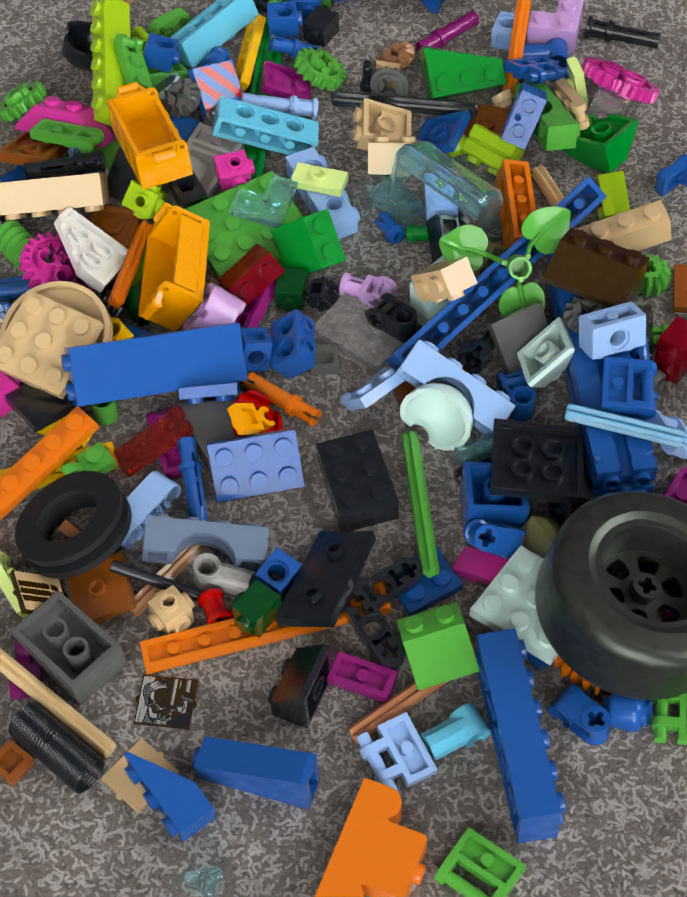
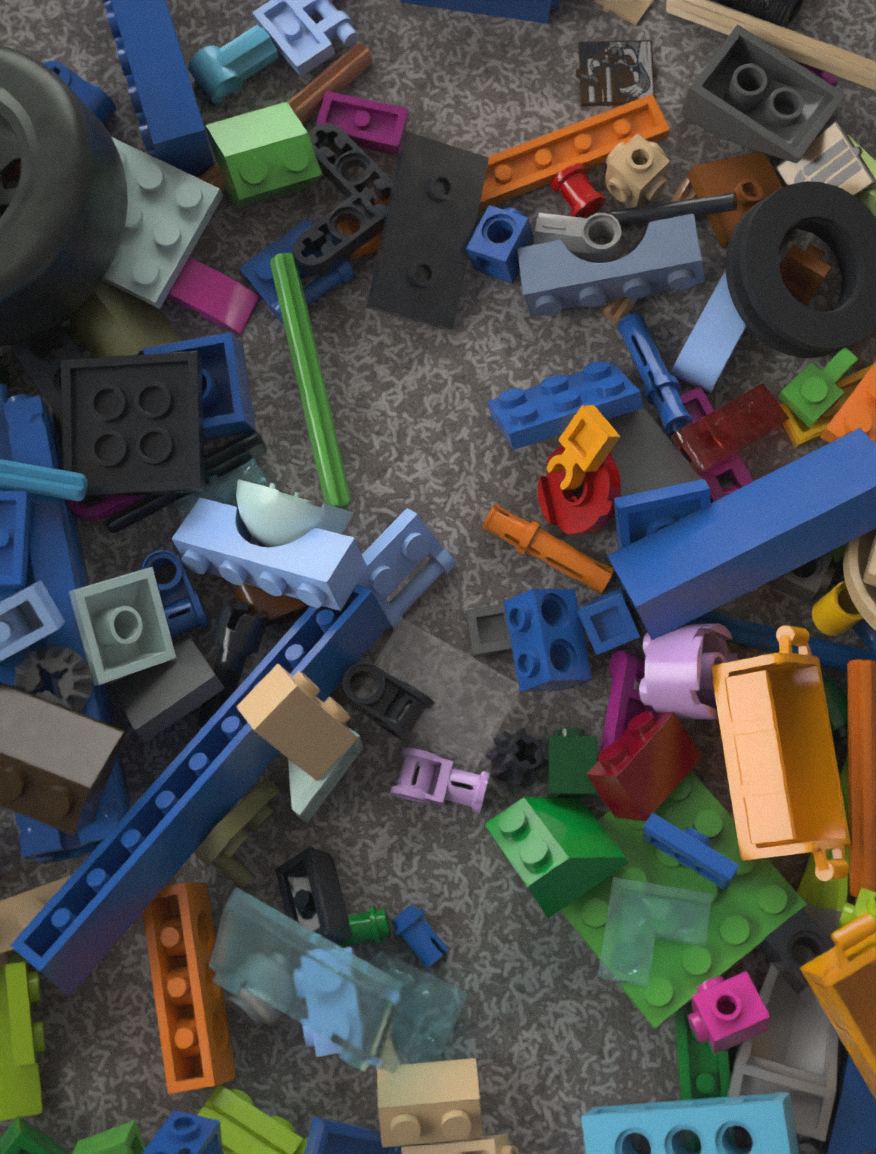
camera: 170 degrees right, 20 degrees up
(234, 229) = (691, 850): none -> blue plate
(256, 608) = (517, 171): dark green brick -> none
(301, 685) = (439, 85): black slope -> none
(320, 179) = (561, 1004): yellowish green plate -> none
(343, 215) = (608, 1061): light blue brick -> none
(357, 481) = (407, 403): black brick -> none
(497, 539) = (192, 316): blue piece -> none
(541, 226) = (130, 836): bright green plant -> none
(547, 185) = (125, 1055): tan axle -> none

